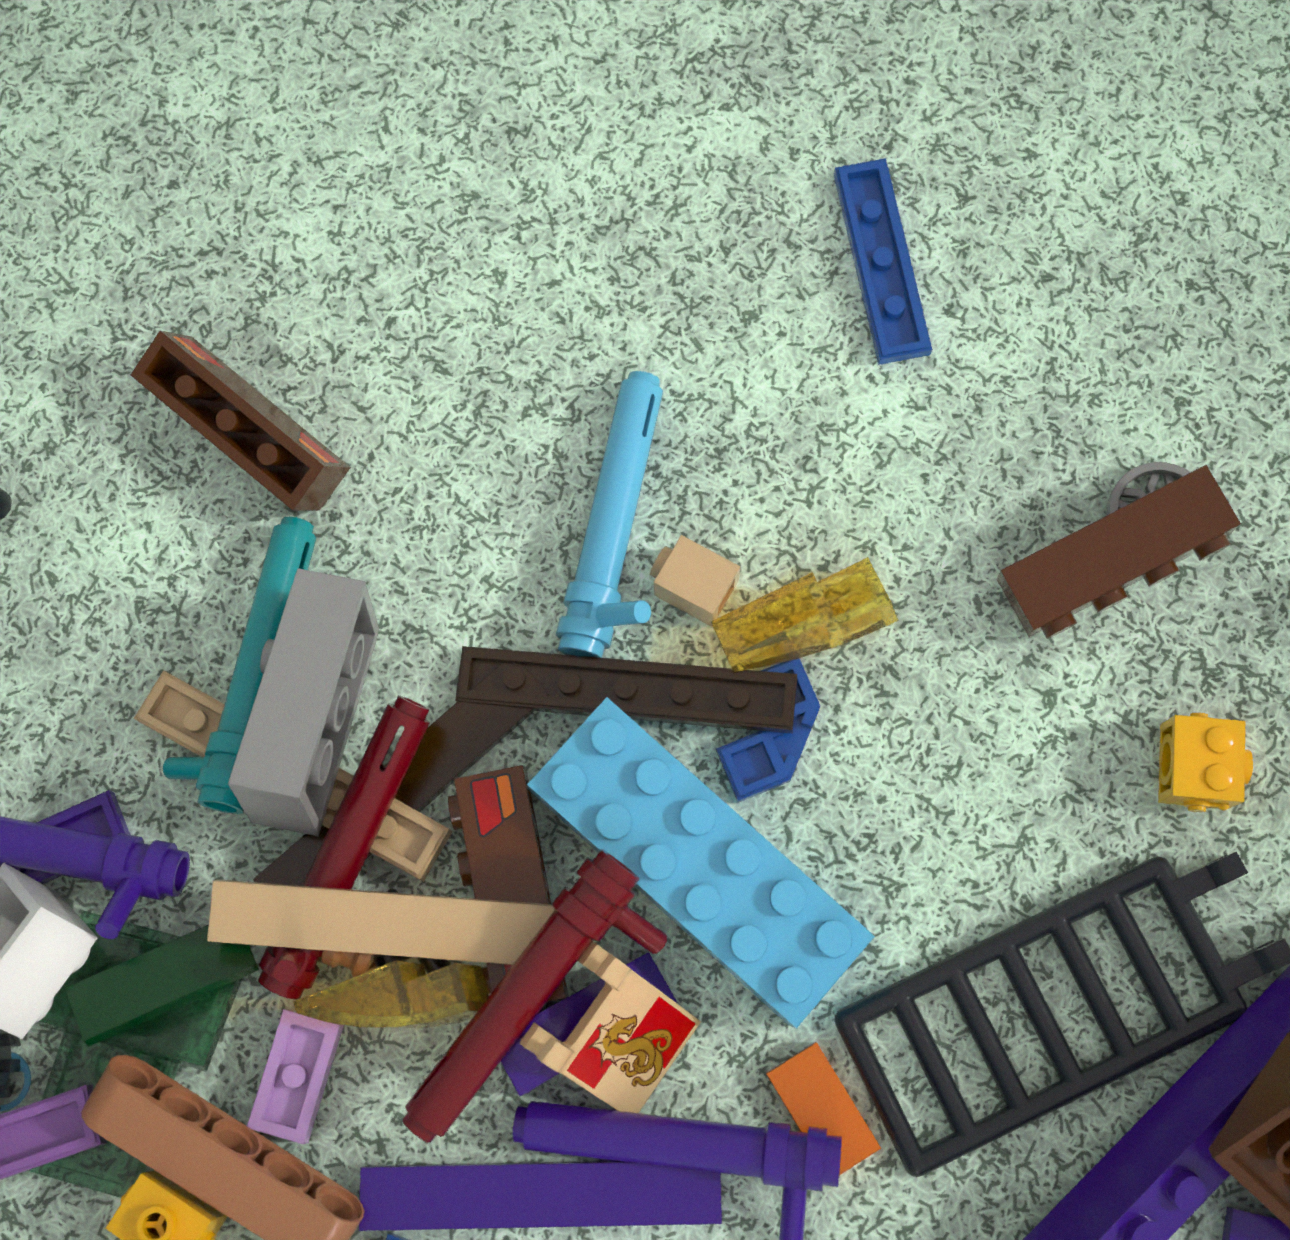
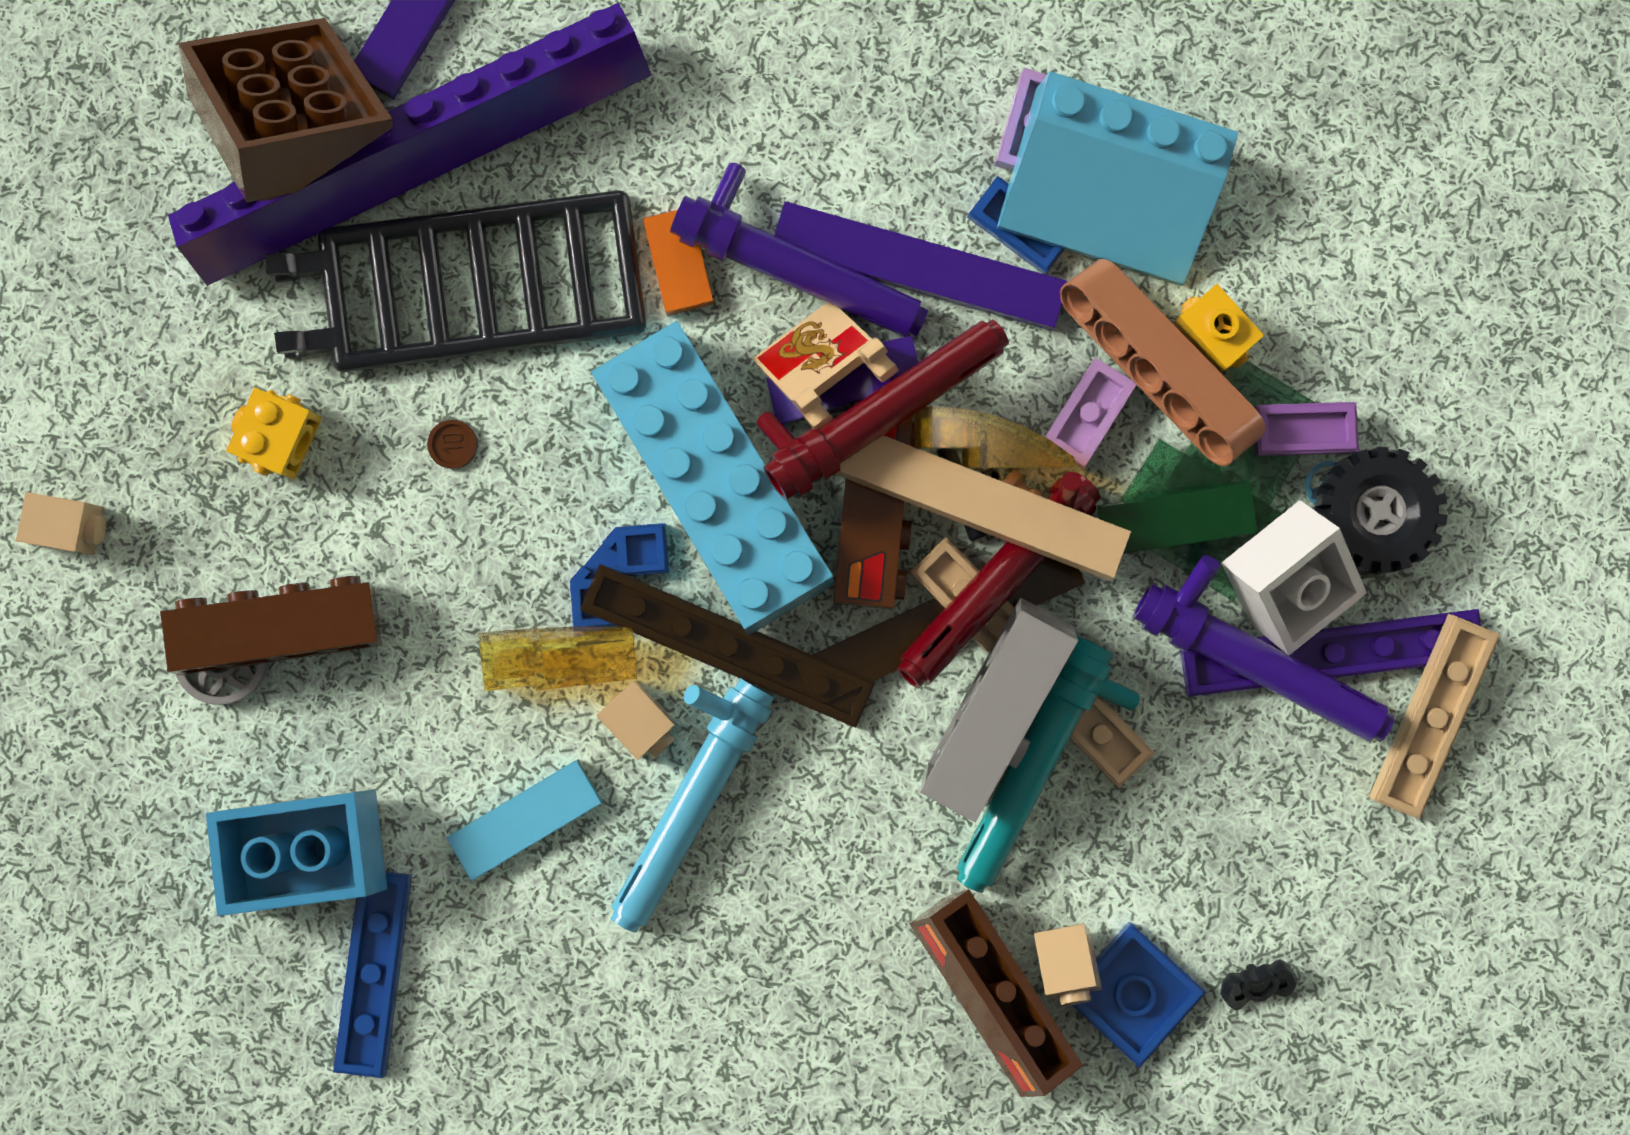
camera: 165 degrees left, 10 degrees up
(100, 471) = (1140, 995): none -> blue tile
(172, 472) = (1068, 964): none -> tan brick
(781, 450) = (524, 819): none -> medium azure tile
(1000, 339) = (296, 852): none -> dark azure brick
(1003, 817) = (452, 444): none -> reddish brown piece

